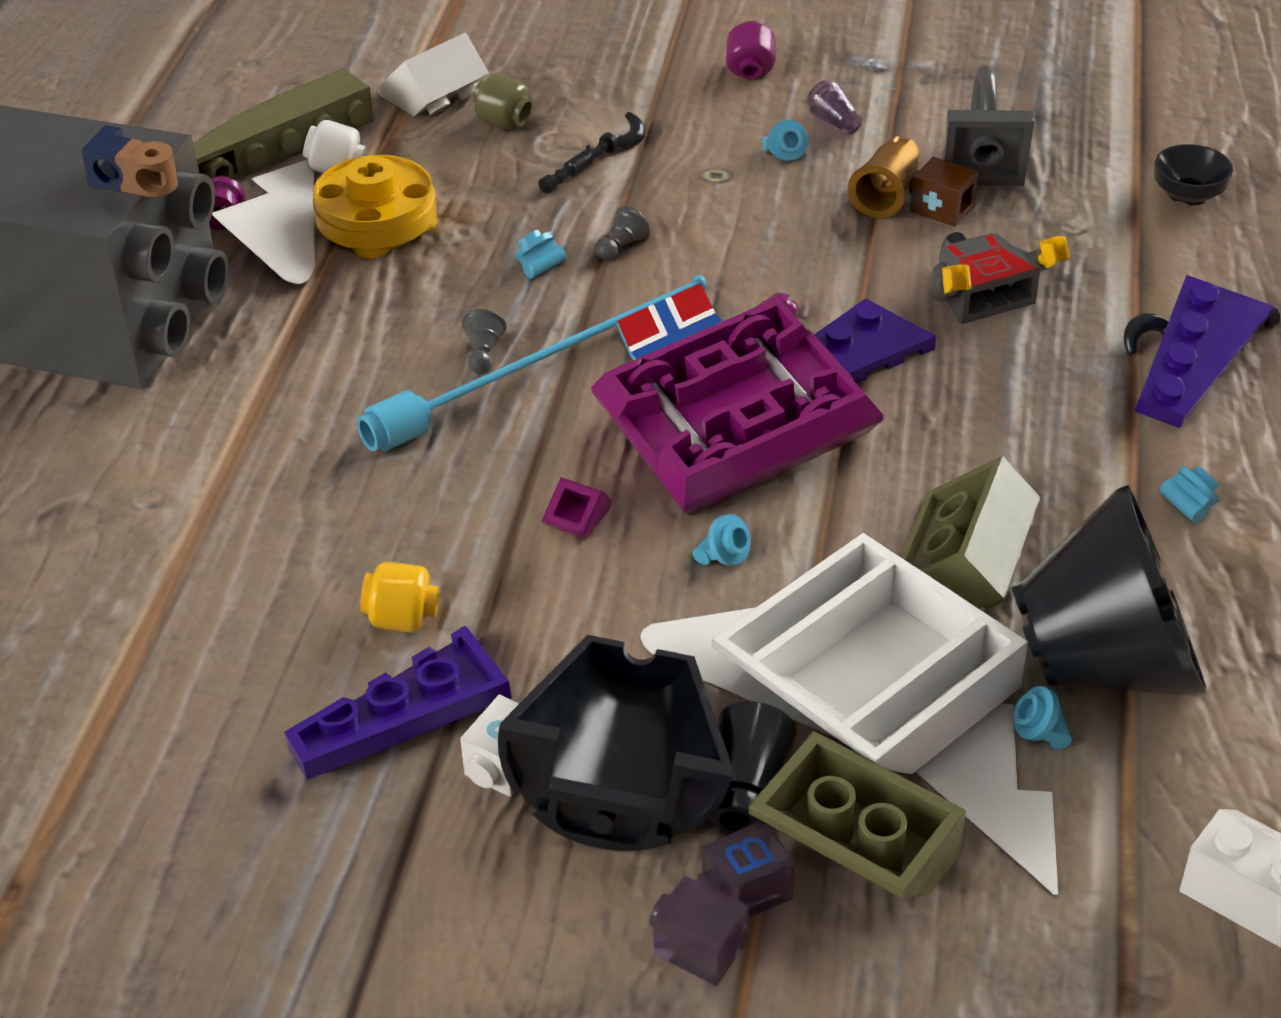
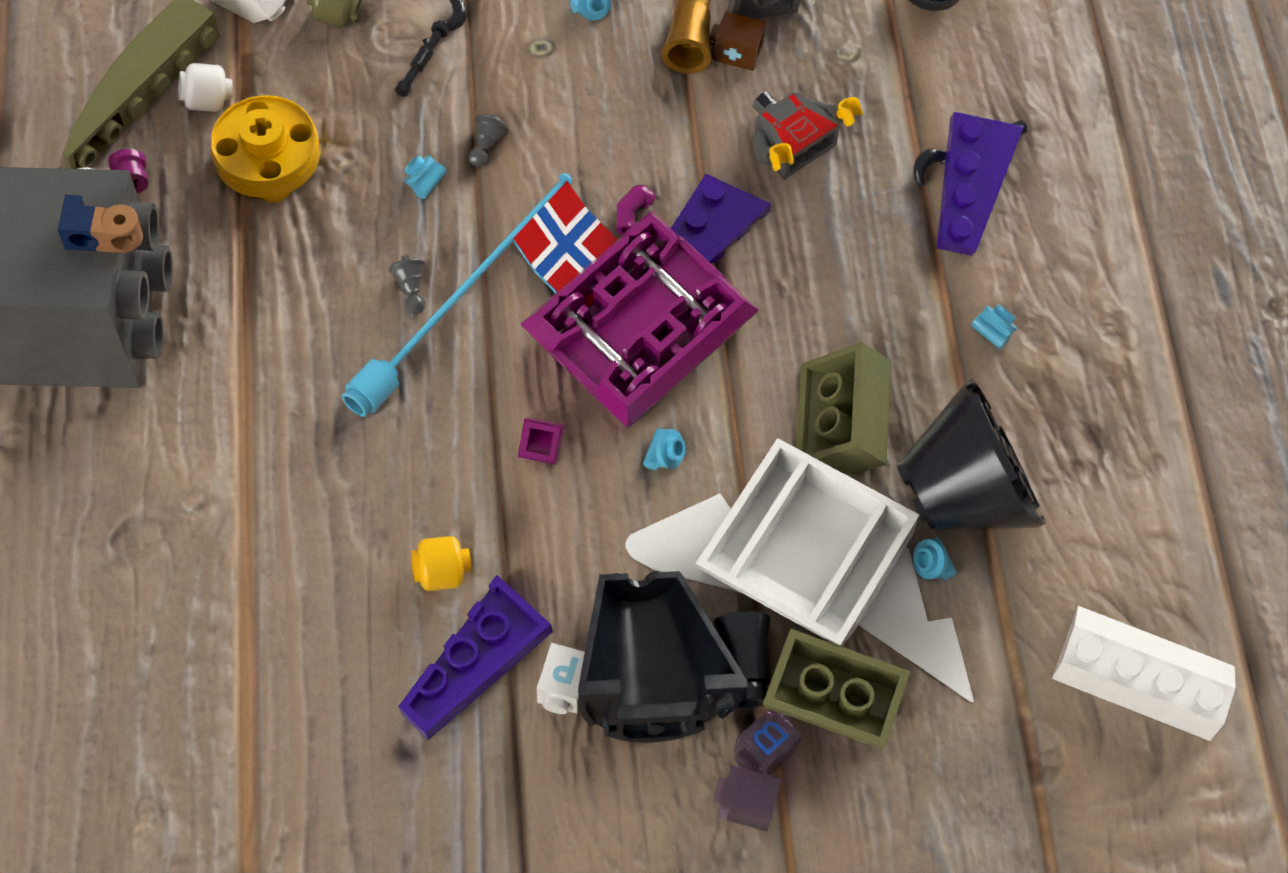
camera: 20 degrees left, 20 degrees up
(279, 223) = (185, 181): white sticker -> none

